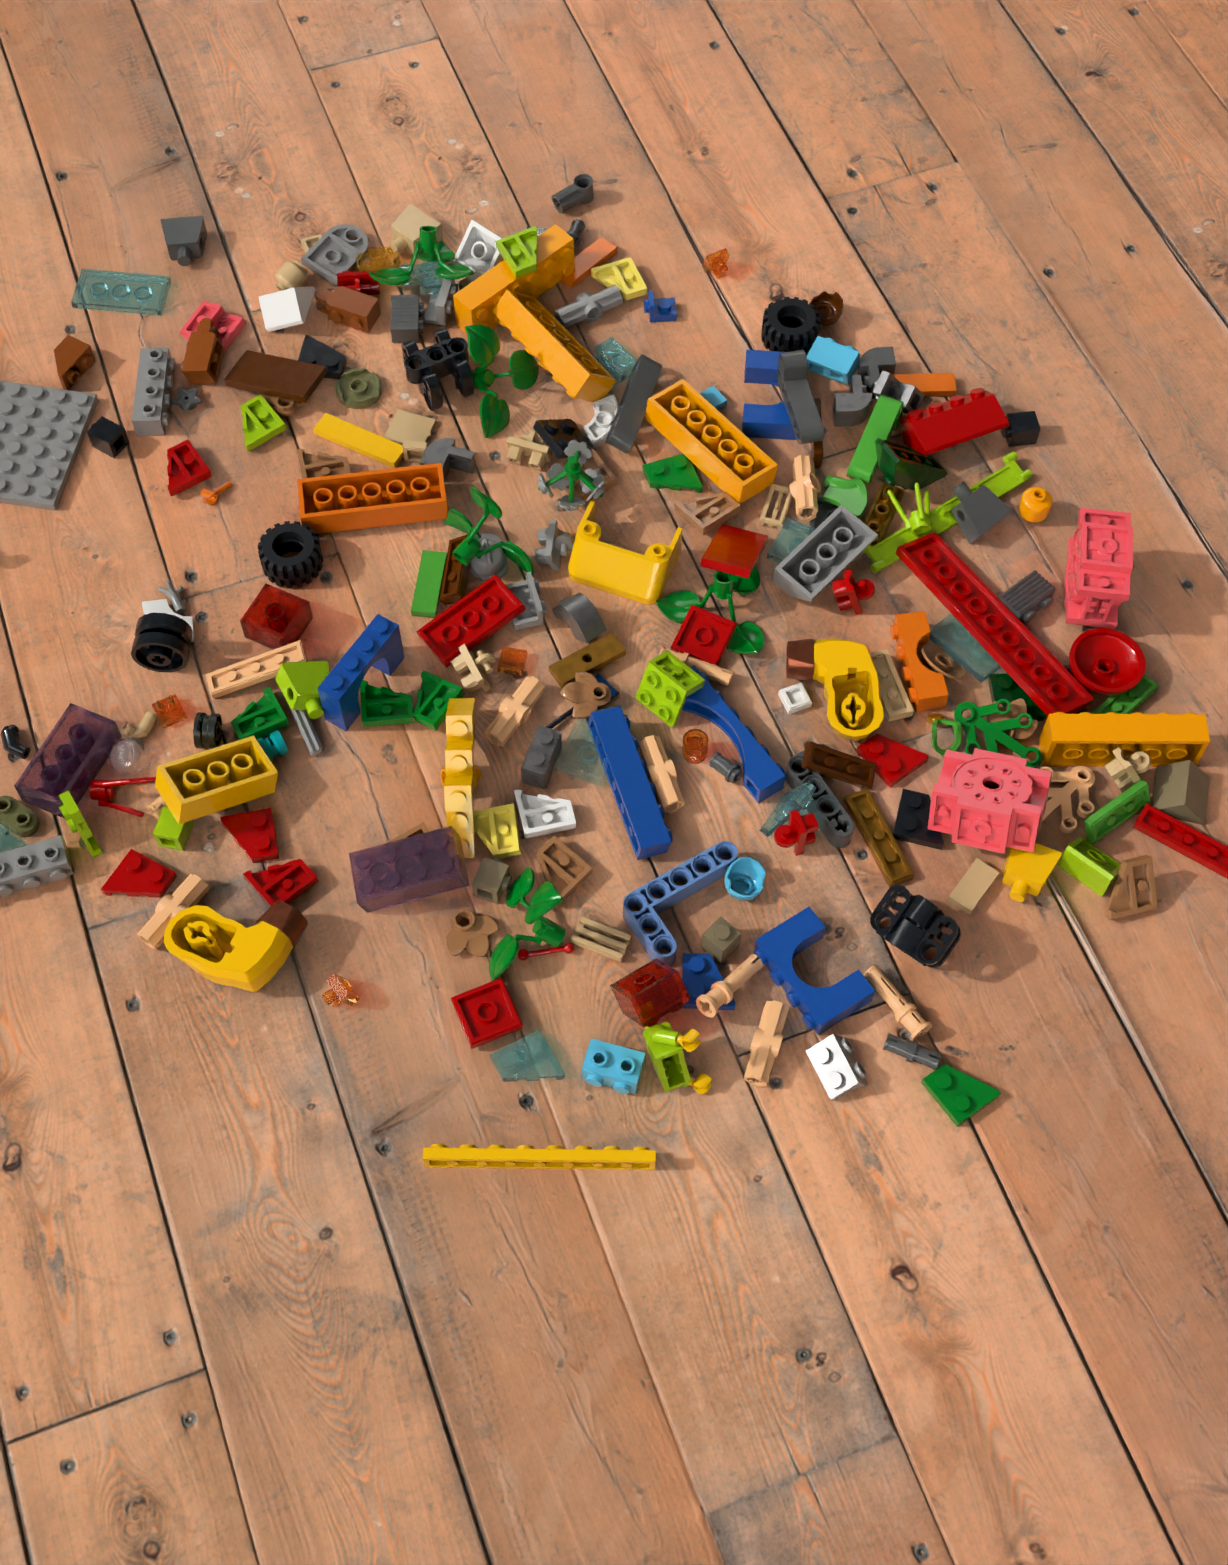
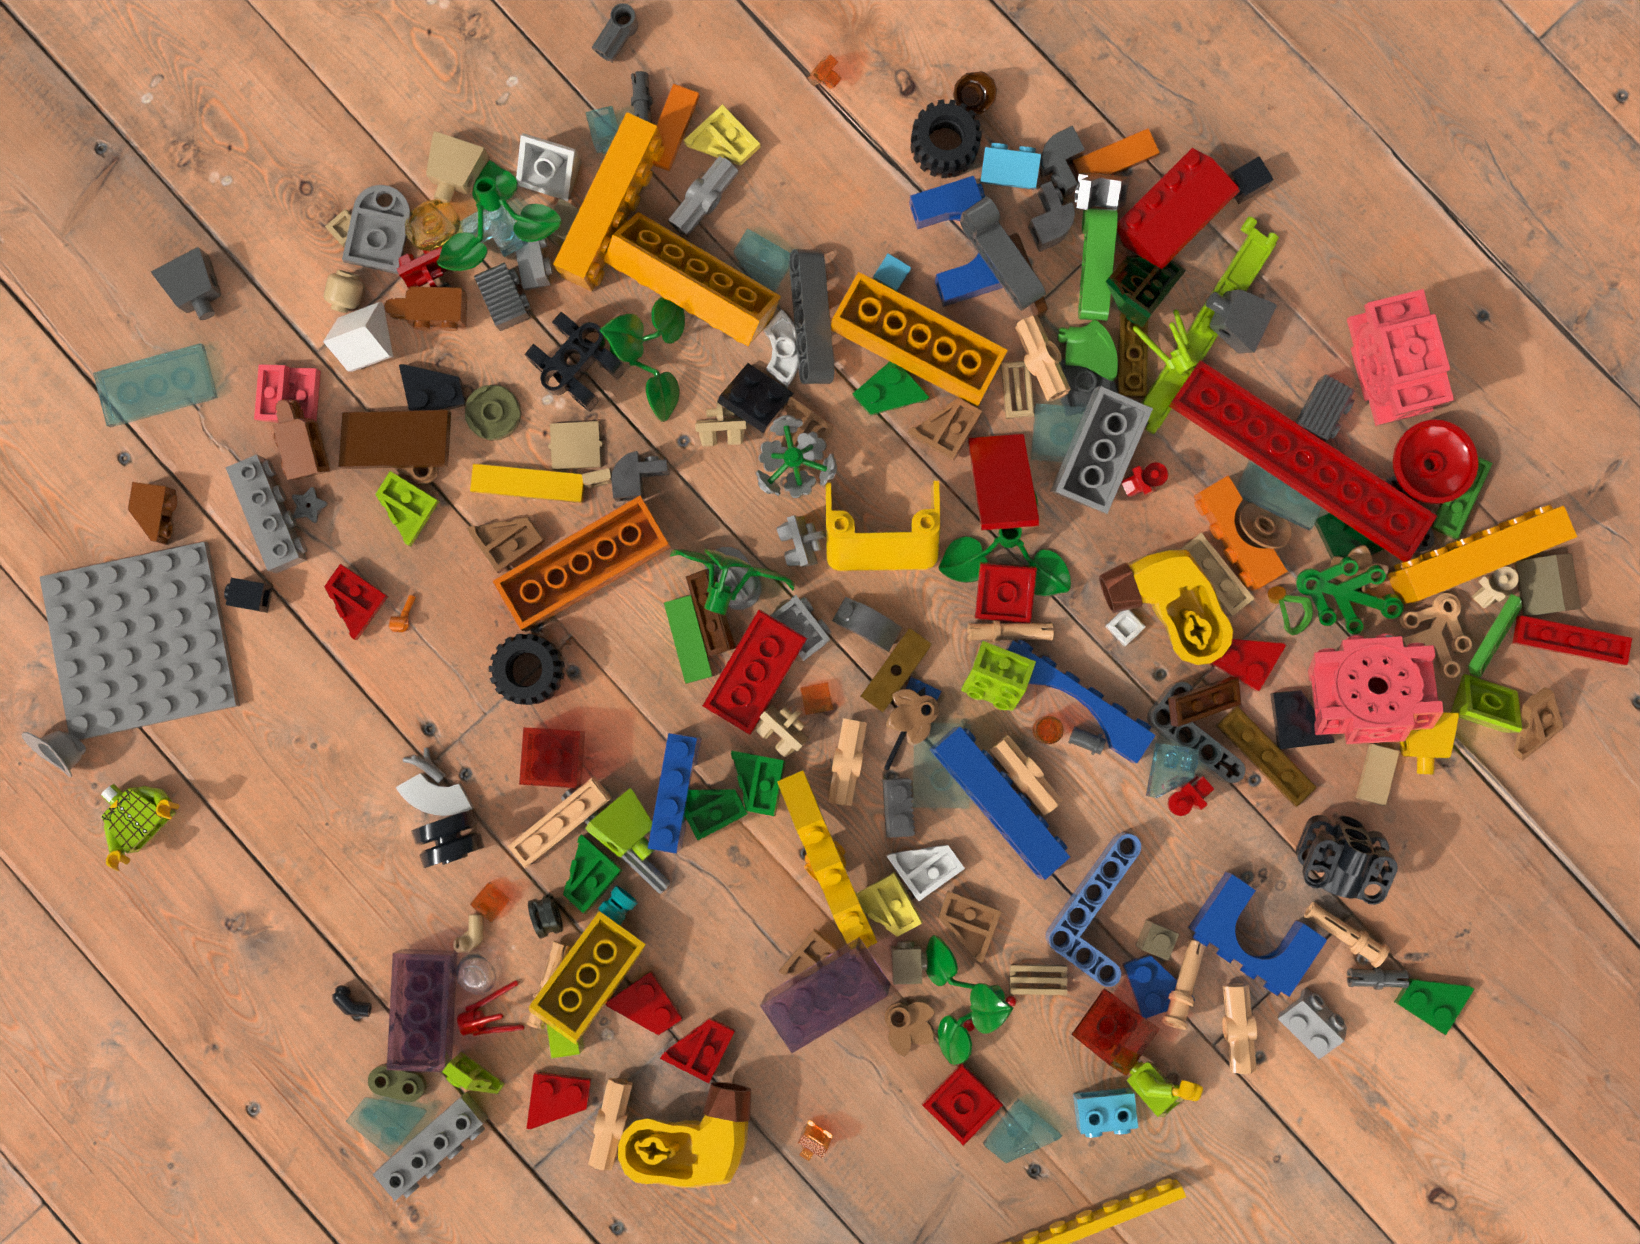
camera: 20 degrees left, 25 degrees up
(520, 251) = (606, 175): lime wing -> none
(660, 309) = (784, 163): blue bracket -> none
(745, 878) = (1155, 864): medium azure hair -> none
(1035, 504) = (1297, 282): light orange head -> none

